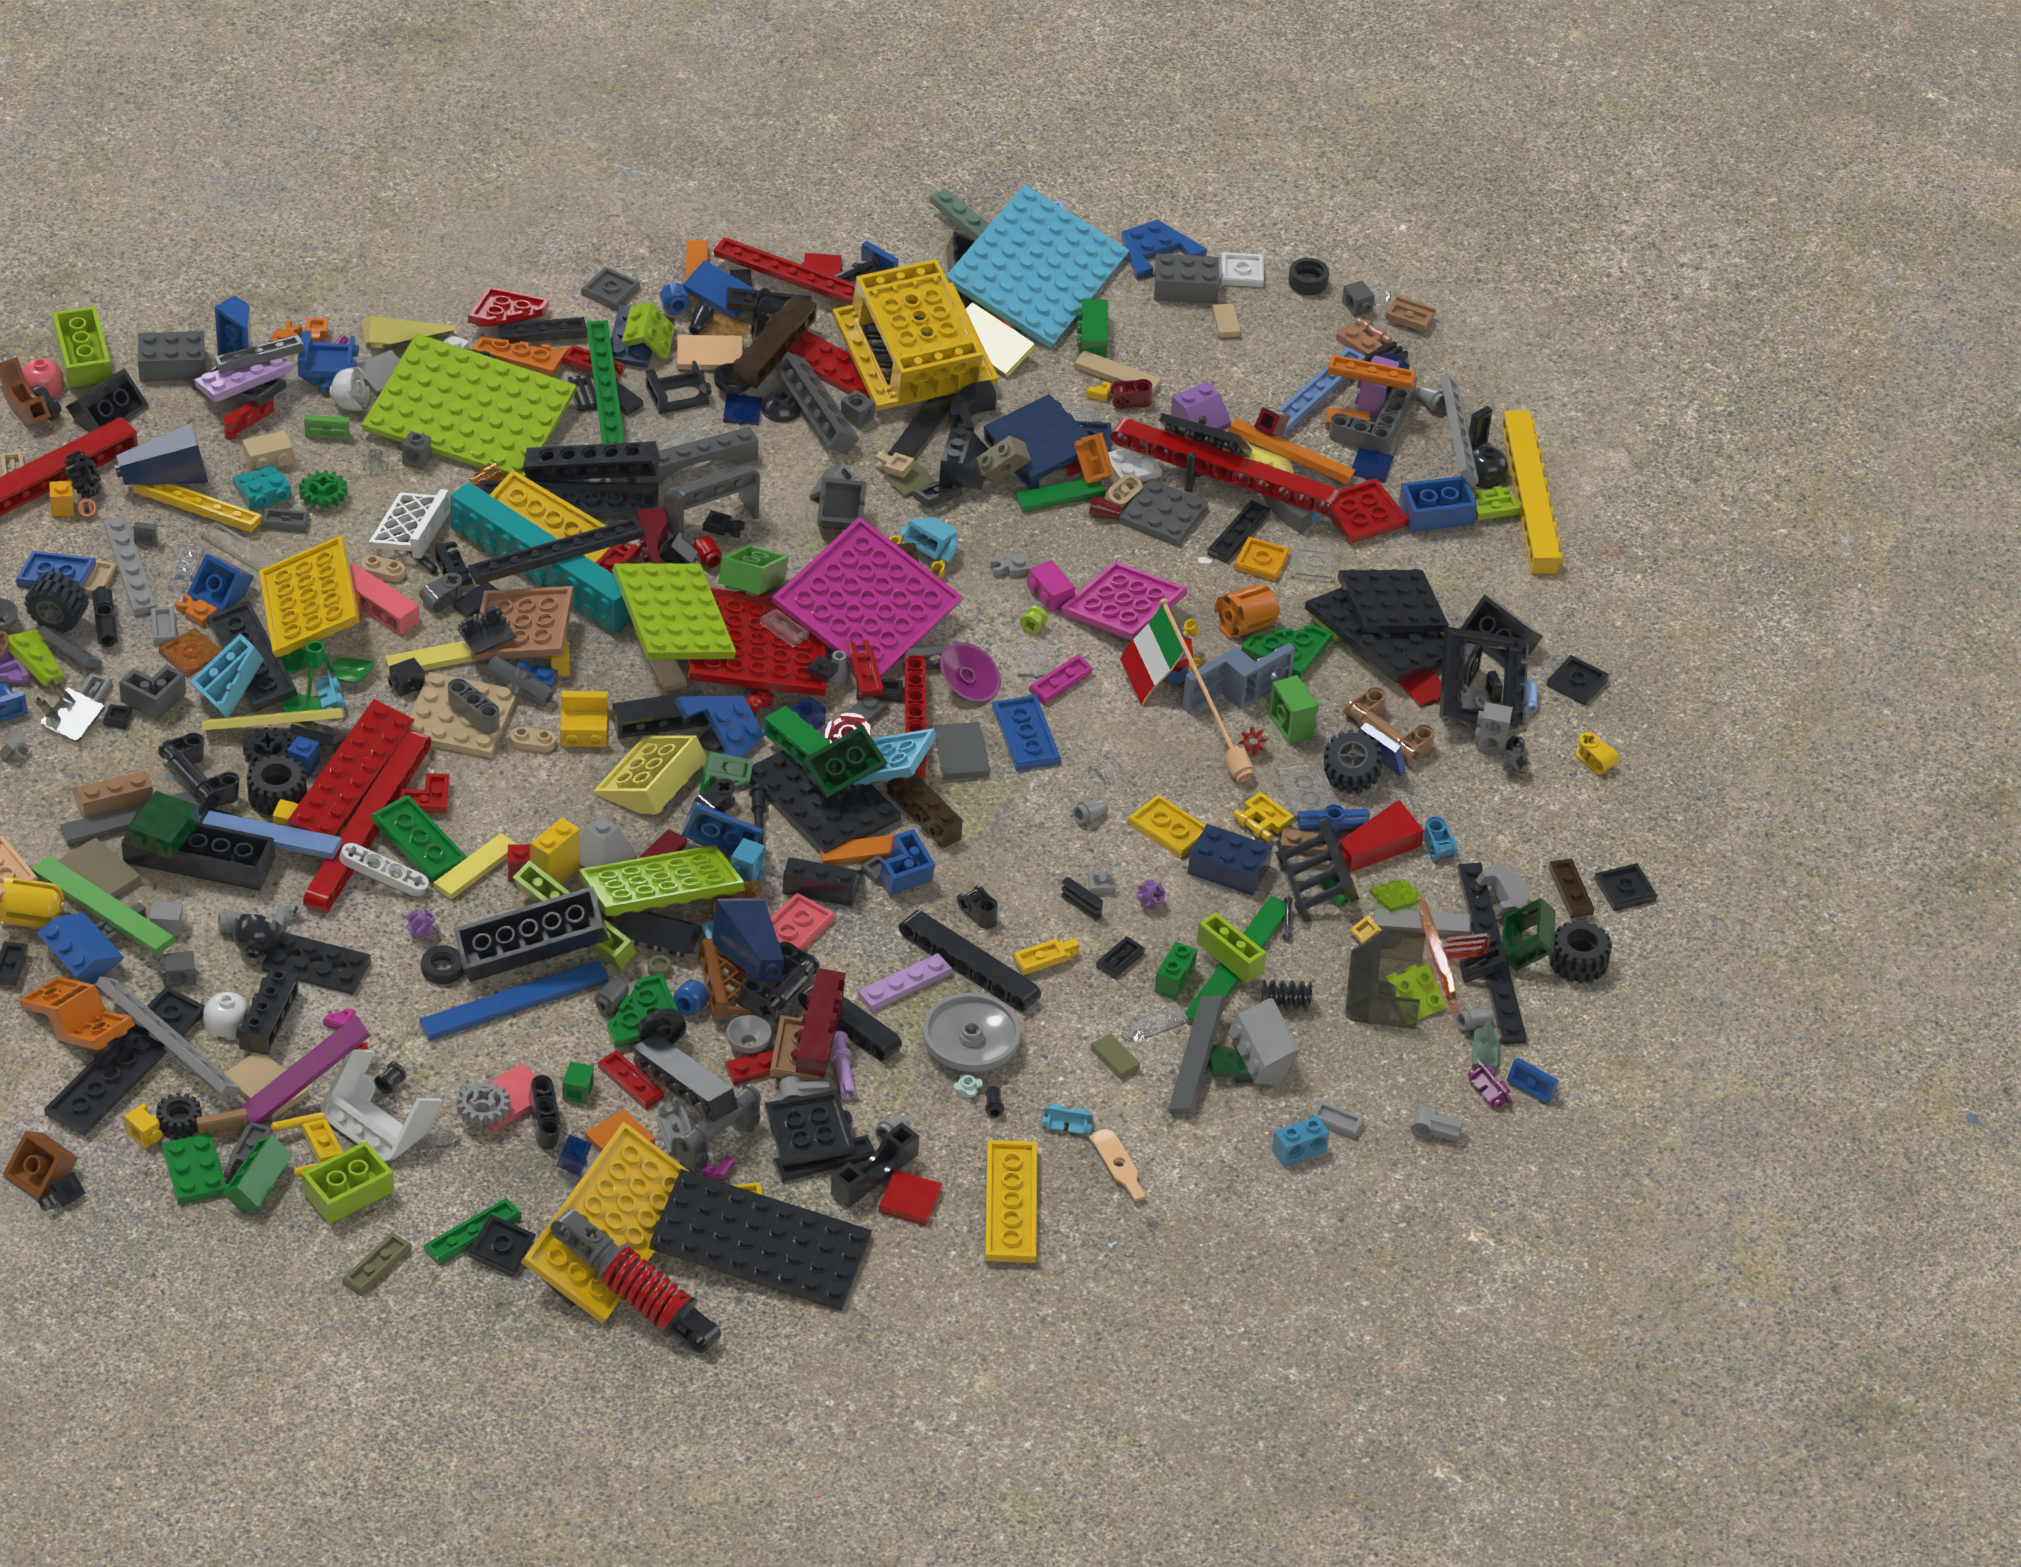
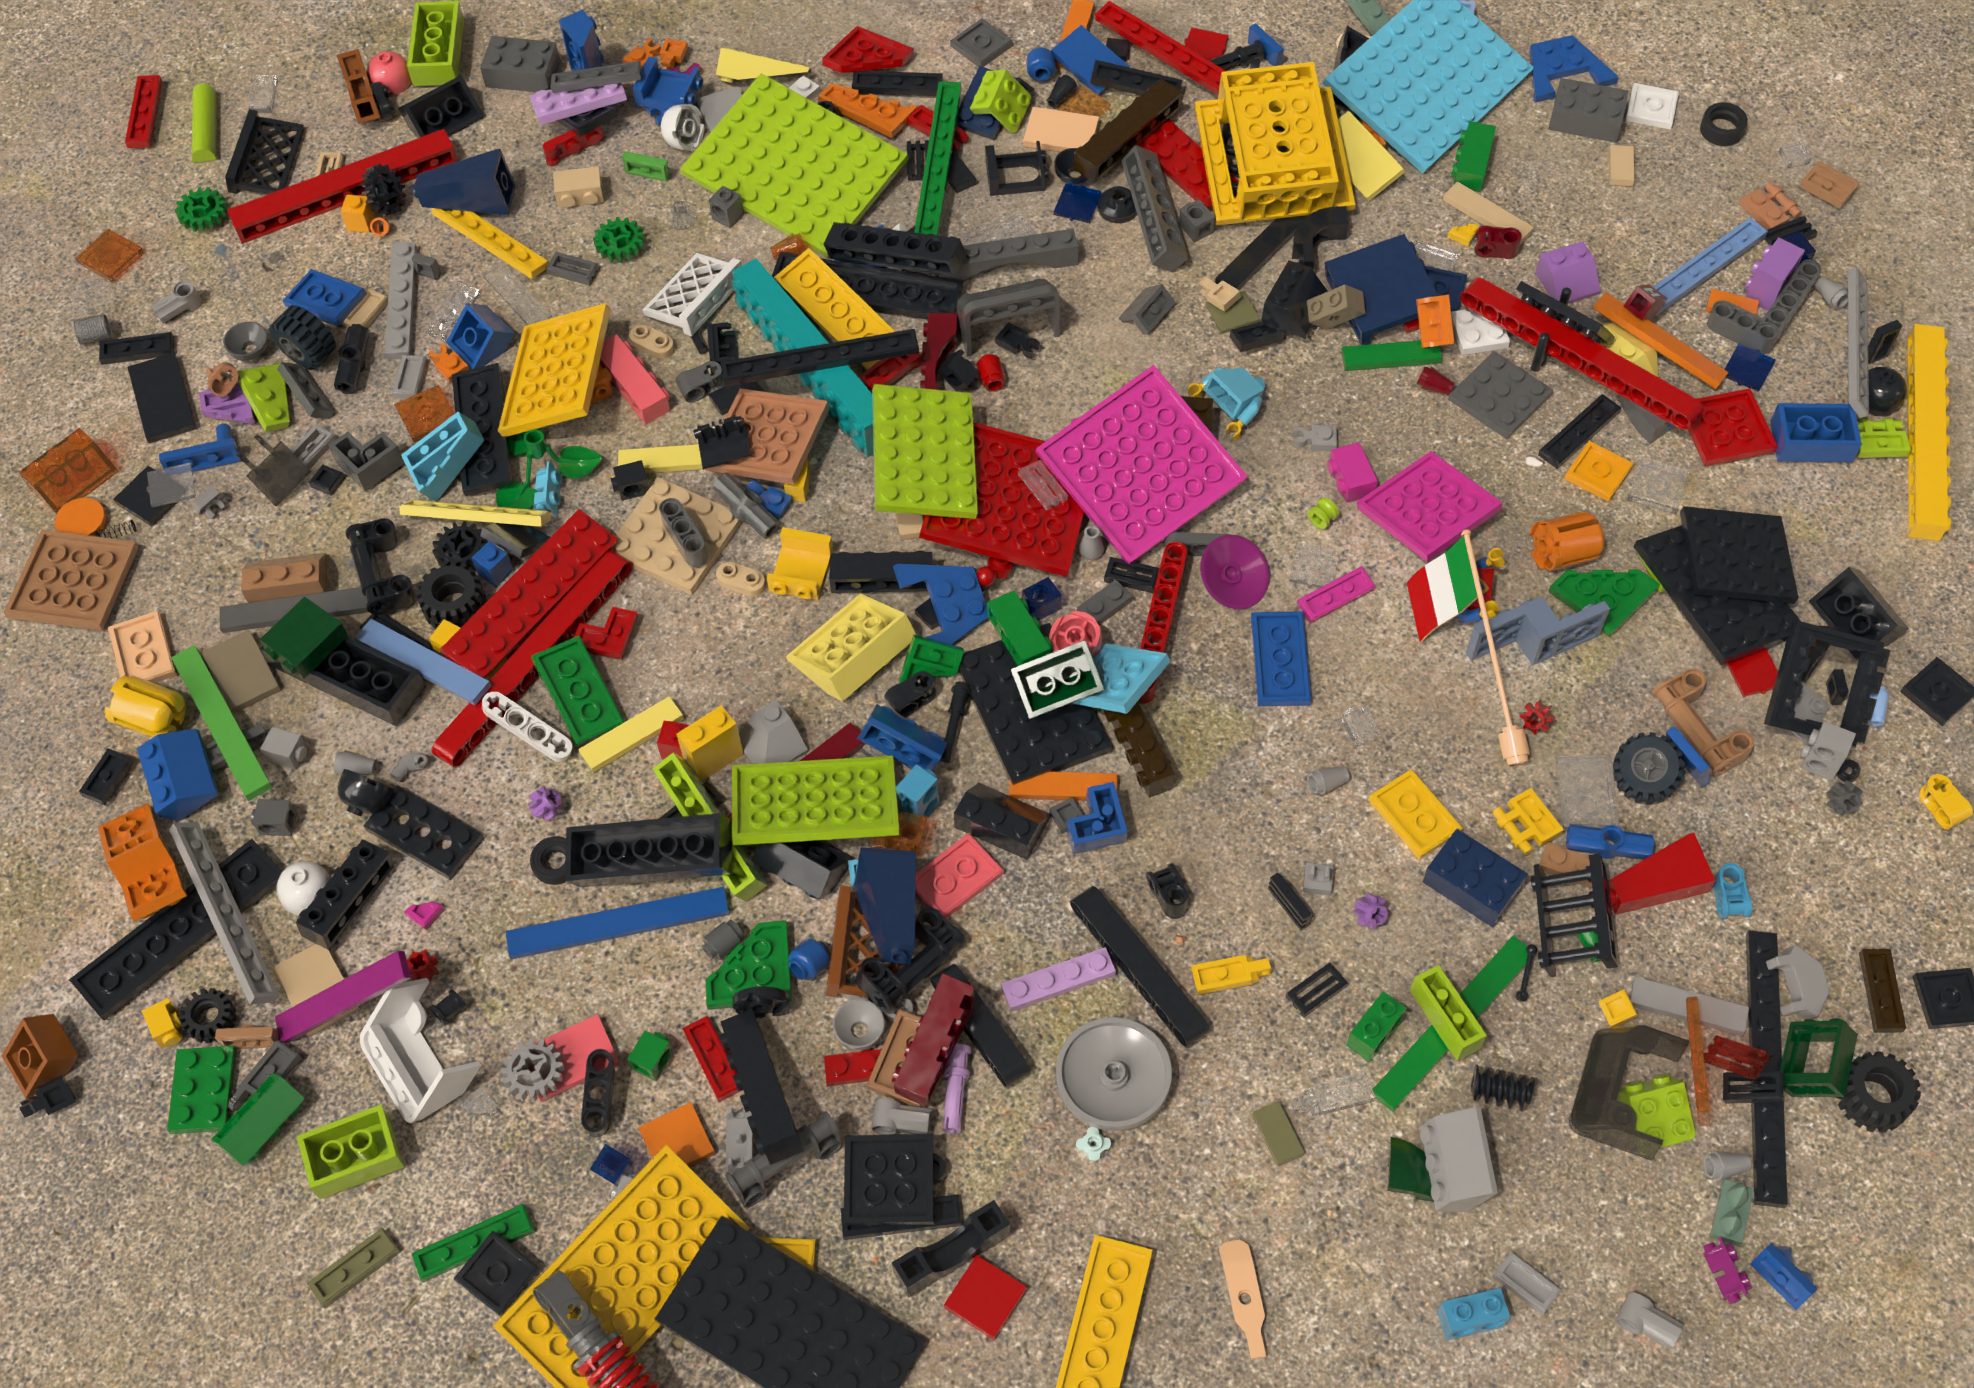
camera: 20 degrees right, 15 degrees up
(262, 487) = (561, 227): teal plate -> none
(318, 1135) = (346, 1081): yellow plate -> none
(659, 964) = (789, 905): olive tile -> none
(718, 1172) = (772, 1214): magenta arm -> none
(753, 570) = (1028, 407): bright green brick -> none
(761, 312) = (1121, 93): black hinge -> none
(822, 669) = (1070, 545): black plate -> none
(841, 502) = (1147, 337): dark grey piece -> none
(865, 670) = (1117, 554): red hinge -> none
(887, 1125) = (989, 1190): light grey cone -> none
(961, 750) = (1201, 671): dark grey tile -> none
(994, 1106) = (1116, 1182): black pin -> none
(1078, 1119) = (1188, 1214): medium azure hinge -> none
(1121, 490) = (1459, 362): tan plate -> none
(1197, 1055) = (1374, 1157): dark grey tile -> none
(1293, 710) = (1592, 684): bright green brick -> none
(1358, 298) = (1773, 158): dark grey brick -> none
(1371, 372) = (1771, 259): orange tile -> none
(1396, 895) = (1665, 962): clear neon green piece -> none

